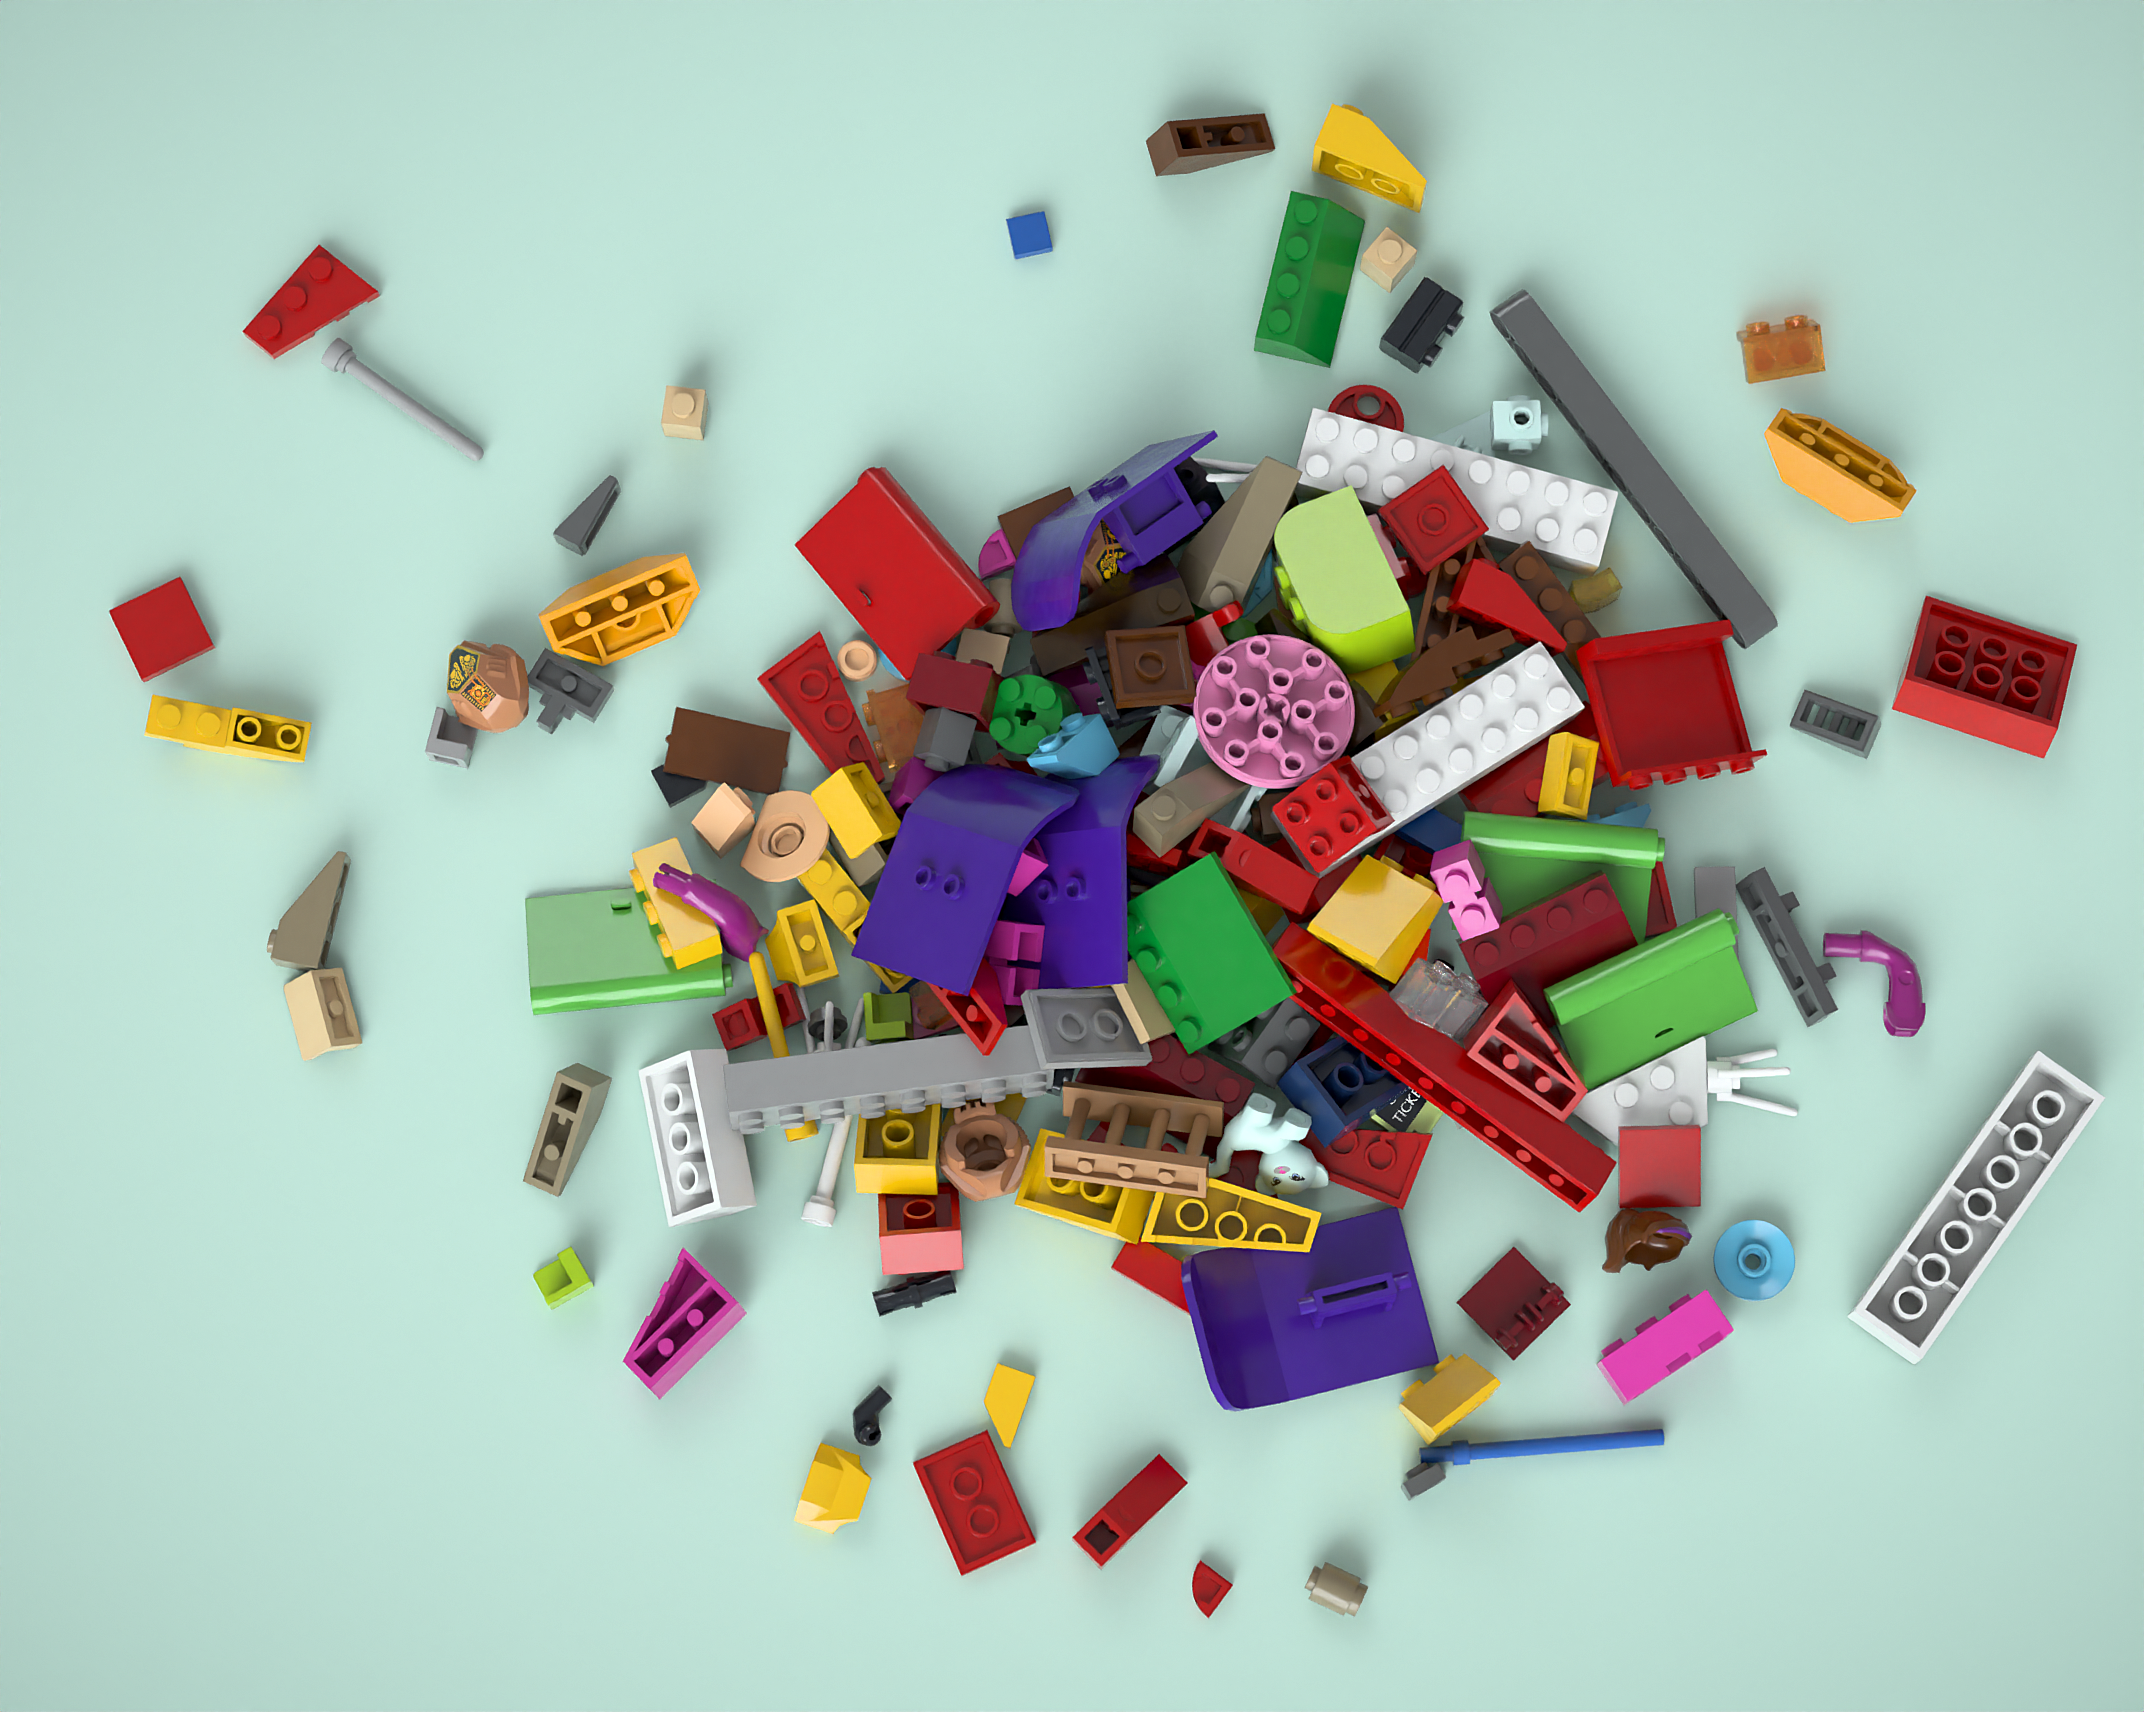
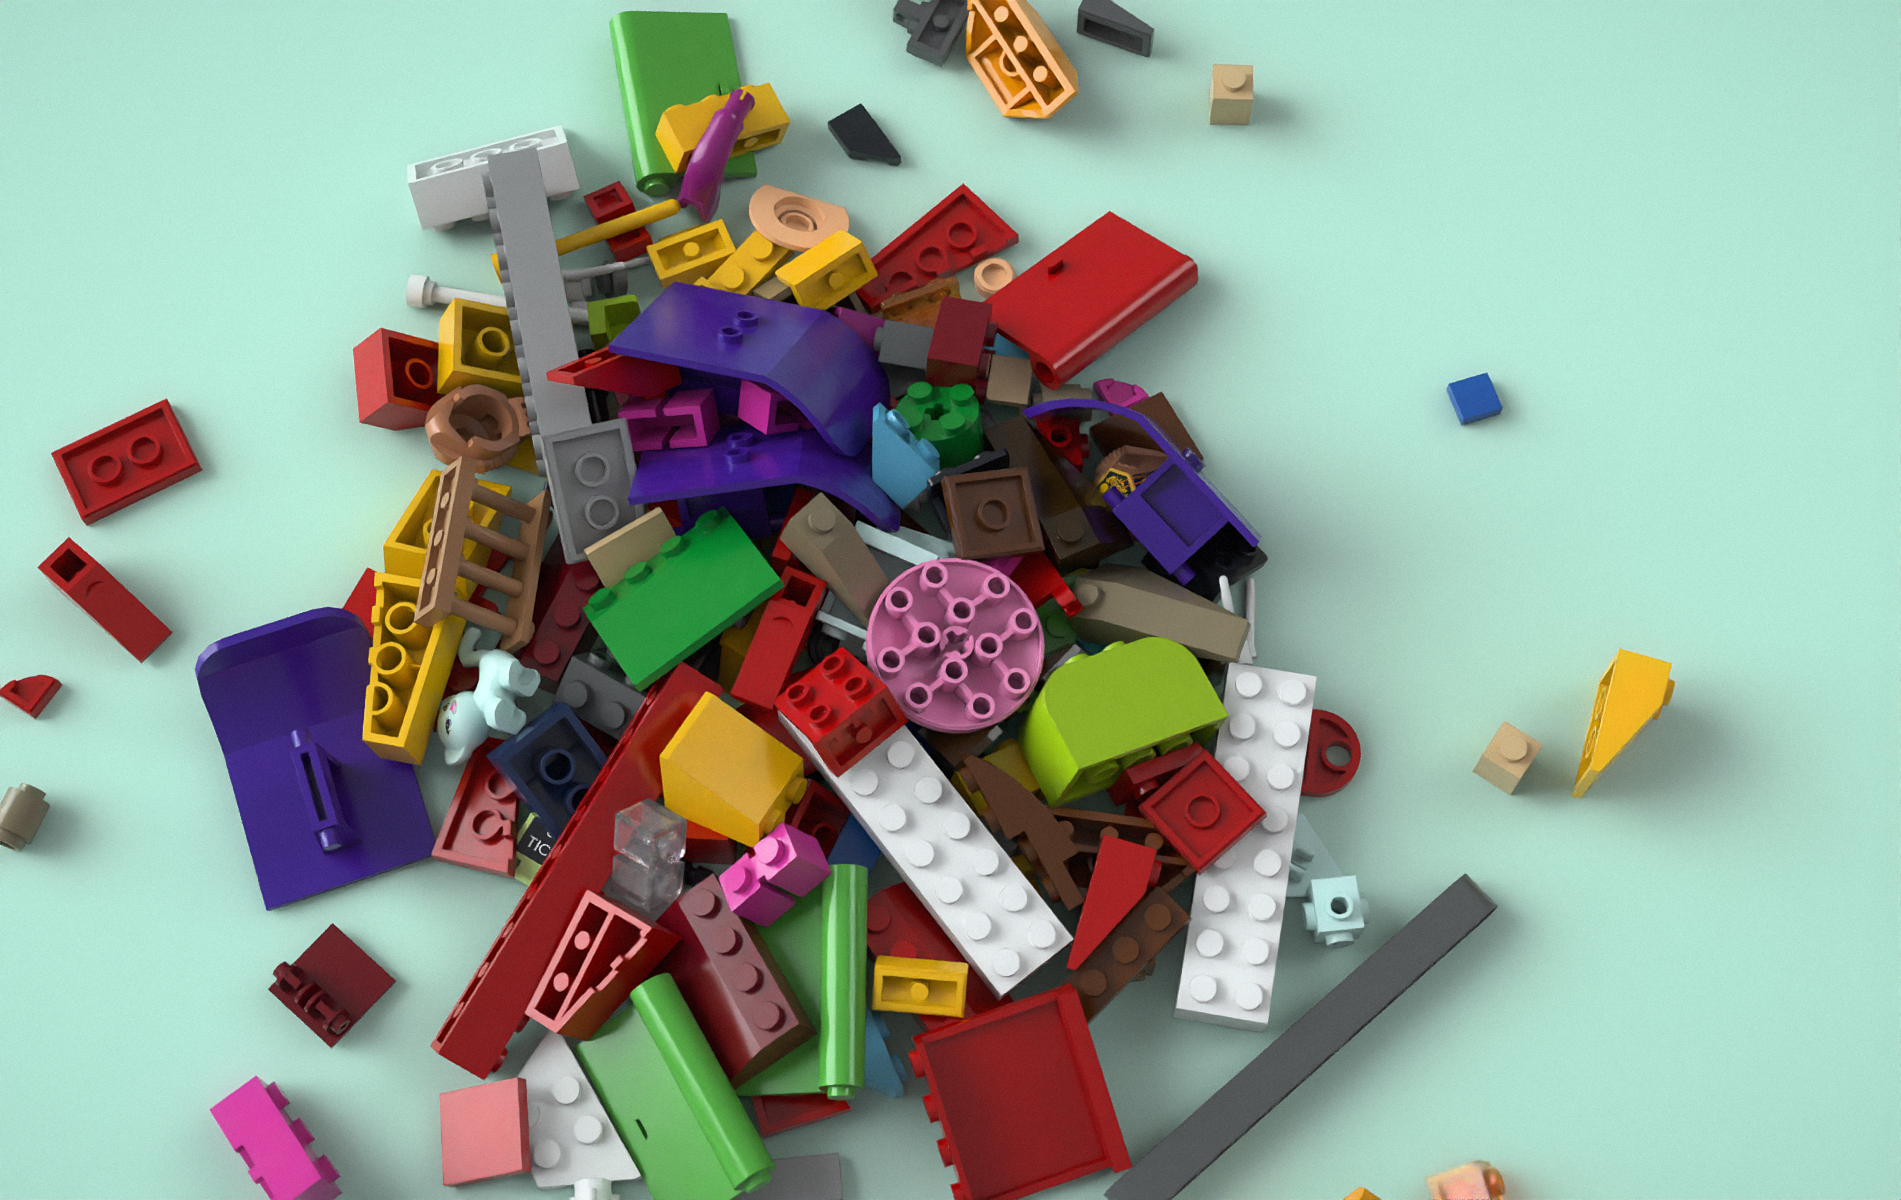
camera: 85 degrees right, 10 degrees down
(562, 1279) = (352, 79): lime panel -> none
(566, 1126) = (505, 62): dark tan slope -> none
(682, 1326) = (299, 176): dark pink wedge -> none
(725, 819) = (812, 165): light nougat slope -> none
(726, 751) = (885, 166): reddish brown piece -> none
(833, 1490) = (143, 325): yellow slope -> none
(866, 1417) = (214, 354): black arm -> none
(914, 1292) = (339, 384): black pin -> none
(1007, 1400) = (229, 482): yellow tile -> none
(1208, 143) = (1609, 563): reddish brown slope -> none
(1309, 280) = (1470, 676): green slope -> none
(1422, 325) = (1437, 802): black brick -> none
(1422, 1479) = (133, 897): dark grey plate -> none
(1448, 1397) = (214, 909): yellow slope -> none
(1461, 1452) = (167, 941): blue bar -> none
(1595, 592) = (1148, 1011): clear yellow piece -> none
(1643, 1239) = (402, 1116): reddish brown hair -> none

